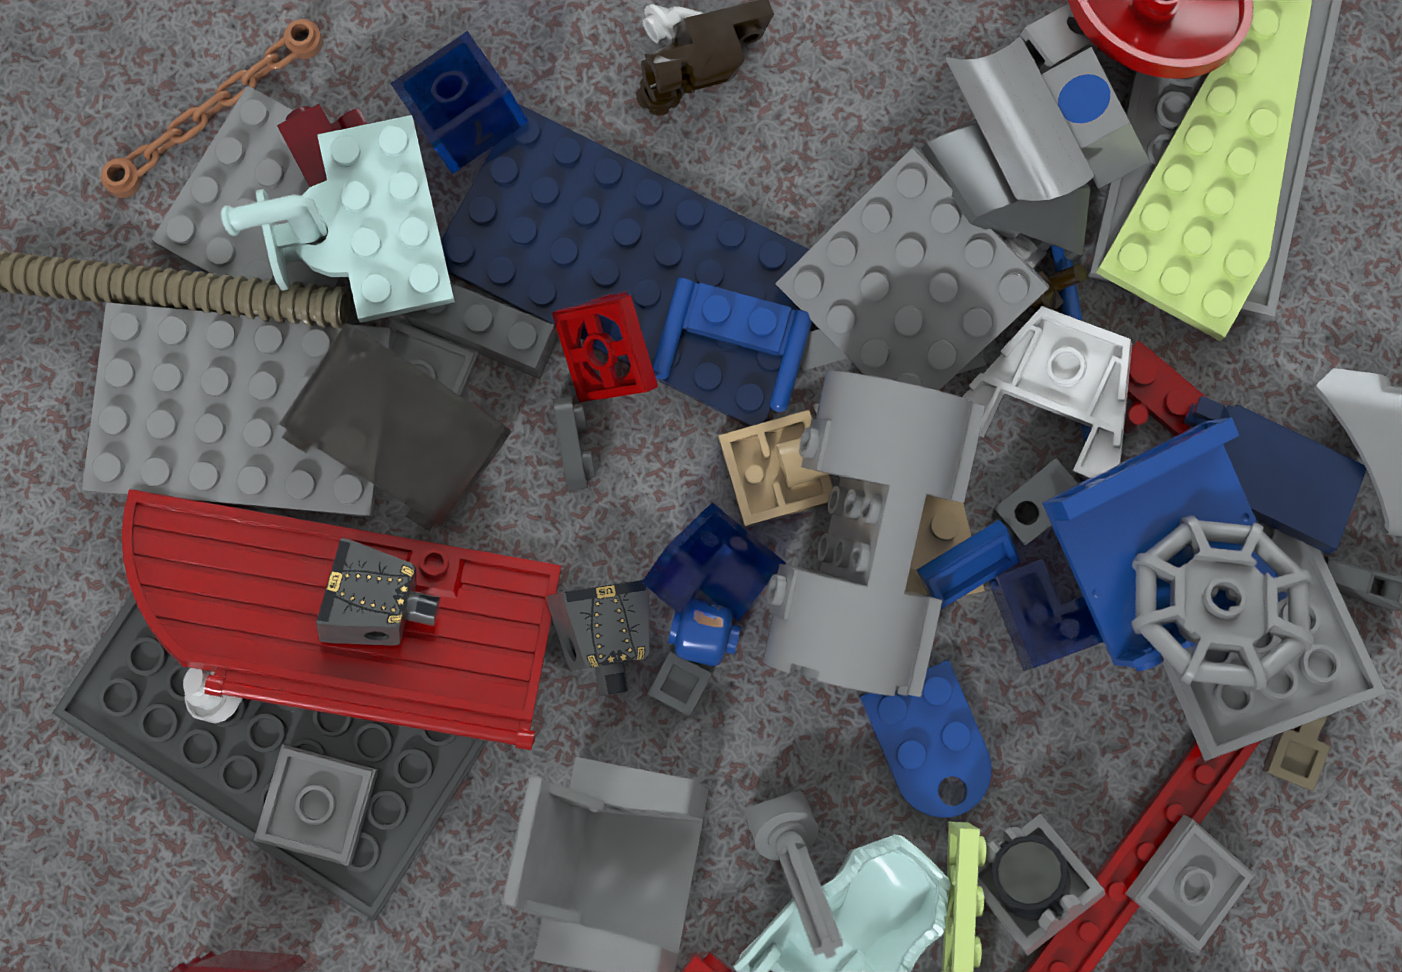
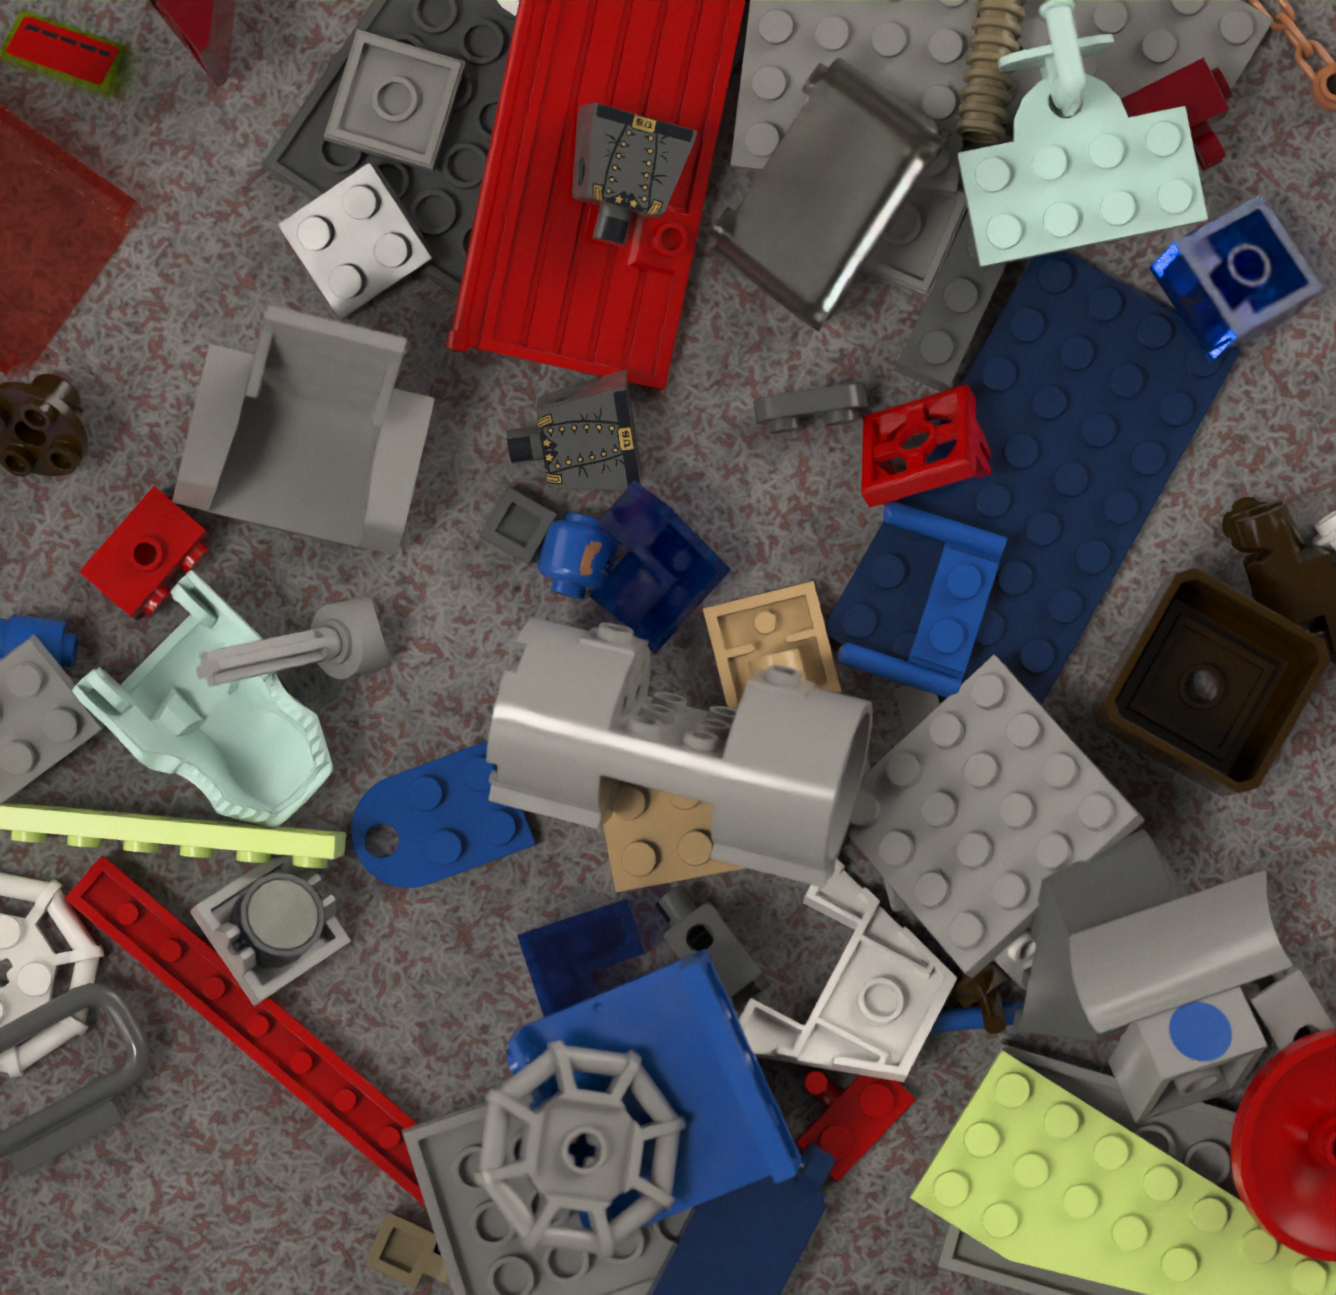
camera: 90 degrees right, 5 degrees up
(438, 833) = (357, 240): none -> plate
(801, 72) = (1260, 671): none -> dark brown plate
(969, 564) = (642, 868): blue tile -> none
(1190, 883) = (262, 1110): light grey tile -> none

